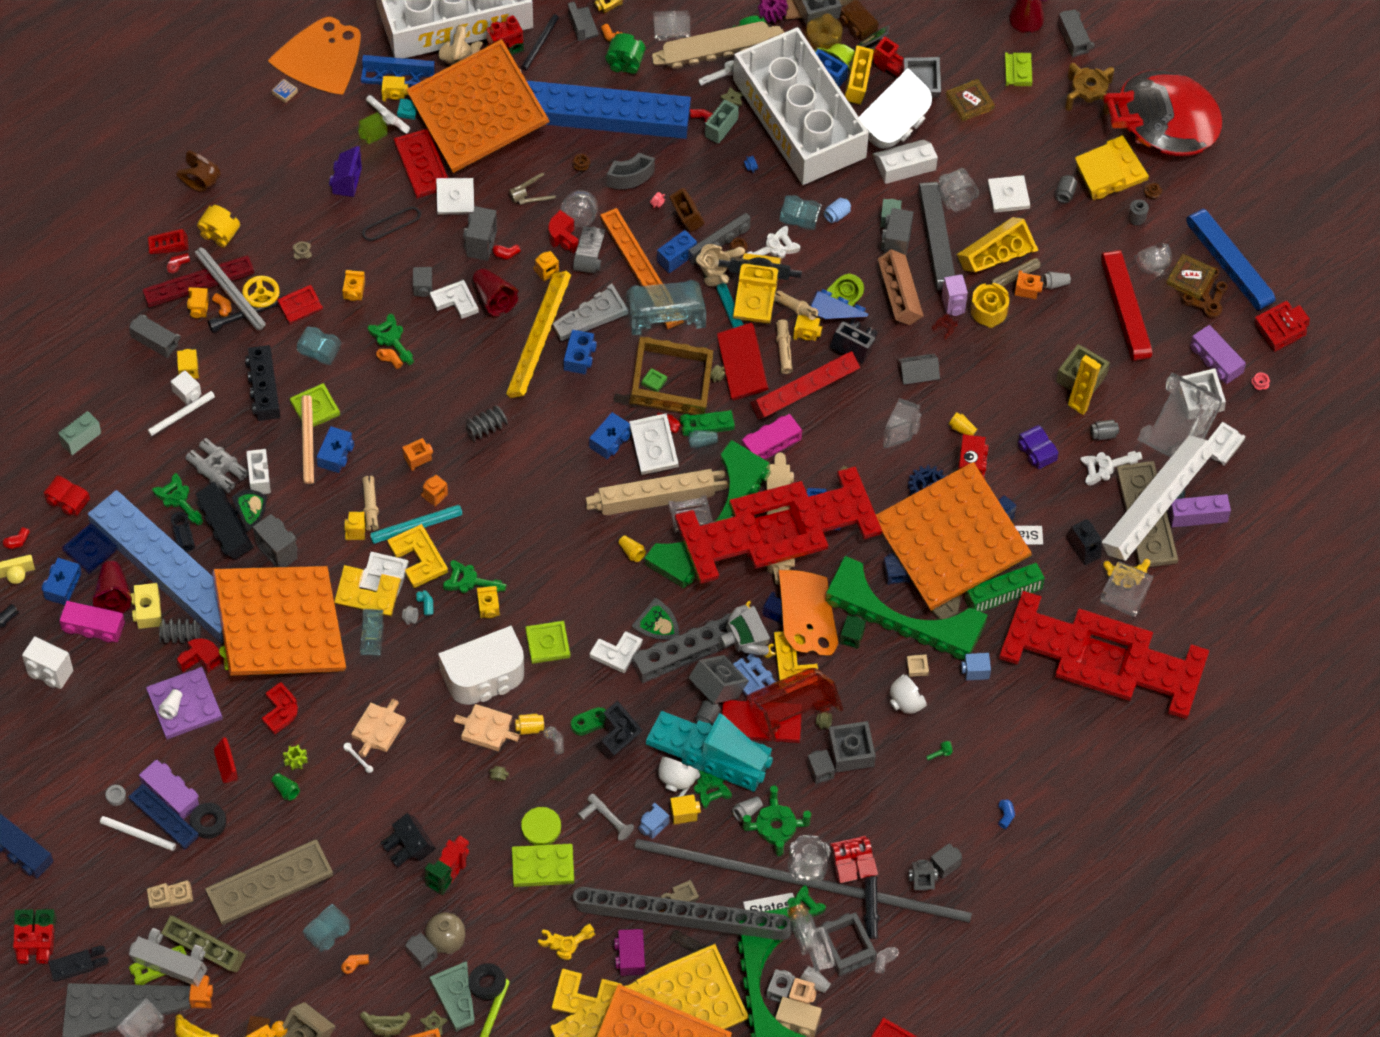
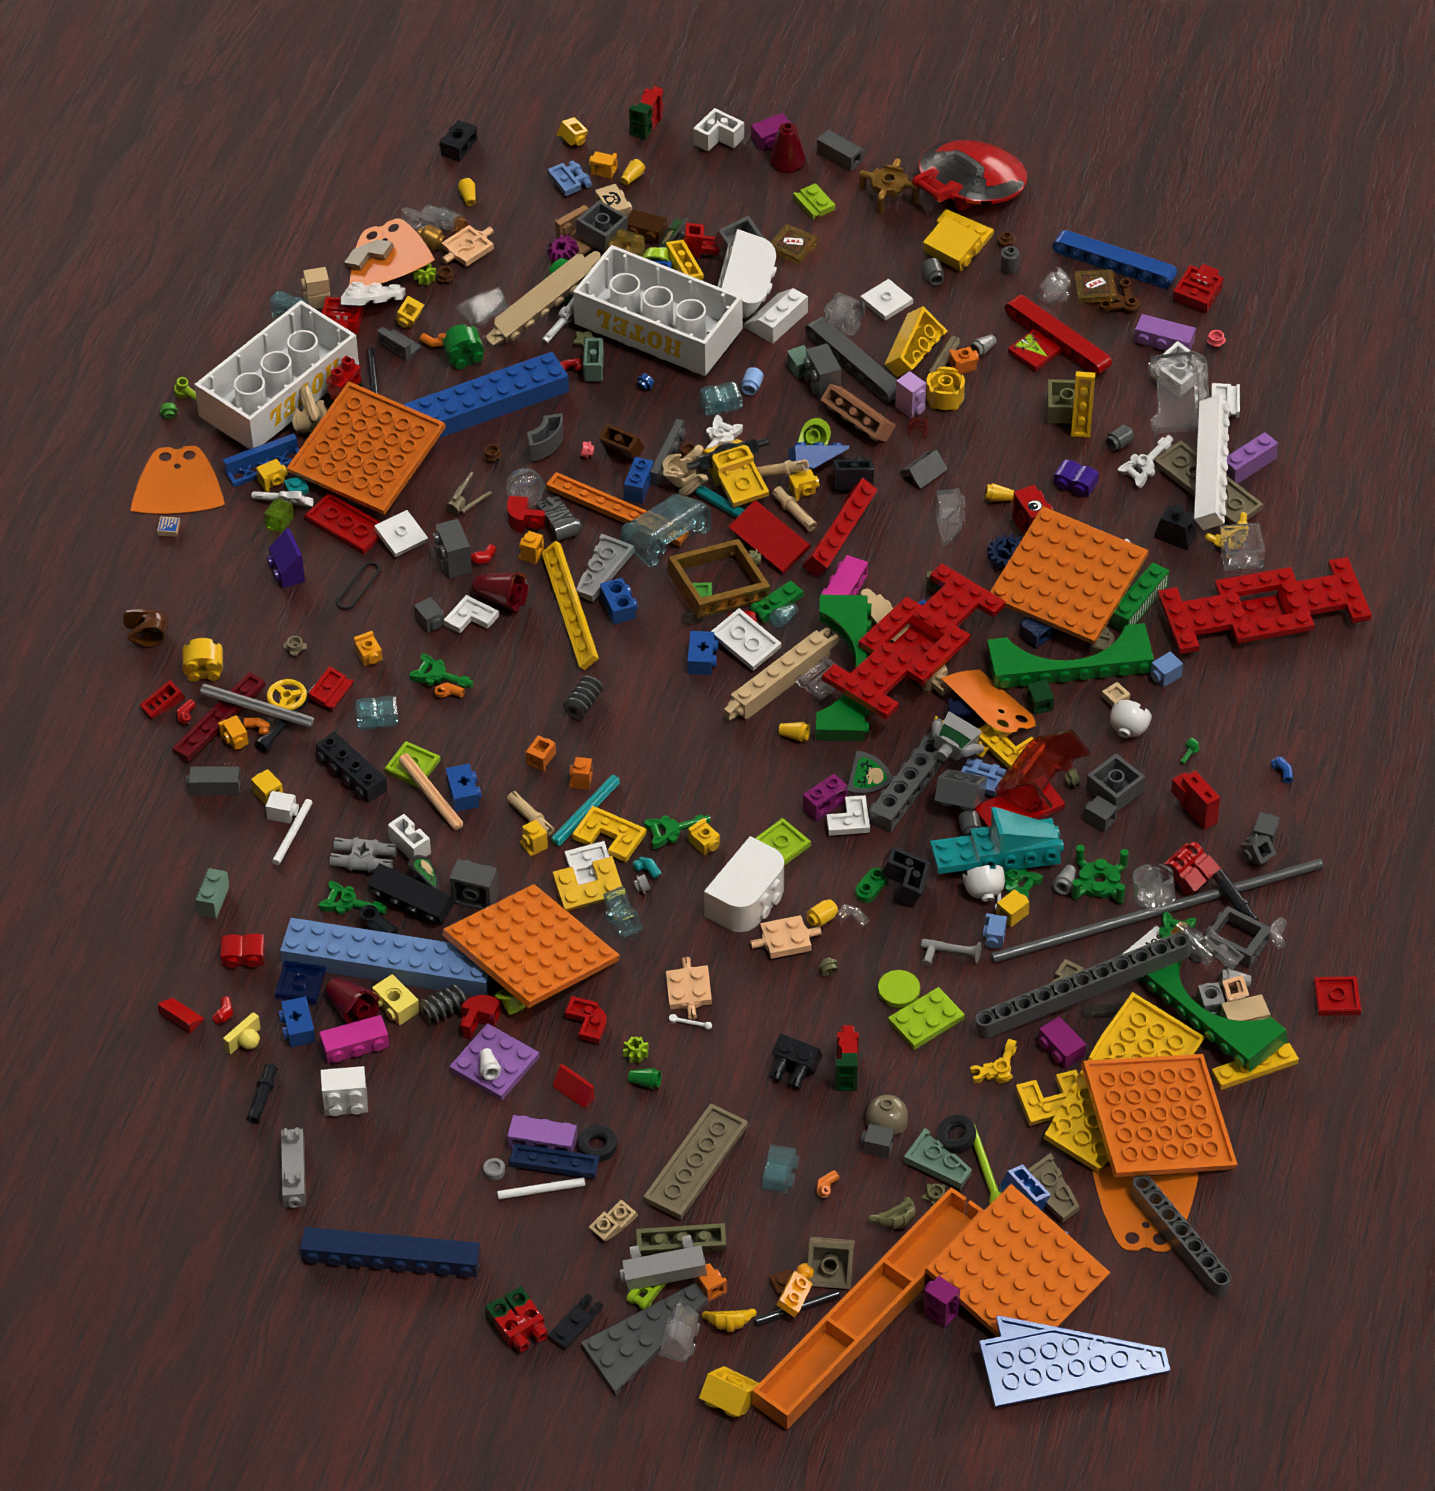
camera: 30 degrees left, 10 degrees down
(608, 622) = (824, 797): none -> magenta brick
(906, 791) = (1197, 798): none -> red piece
(1097, 308) = (1034, 350): none -> red tile

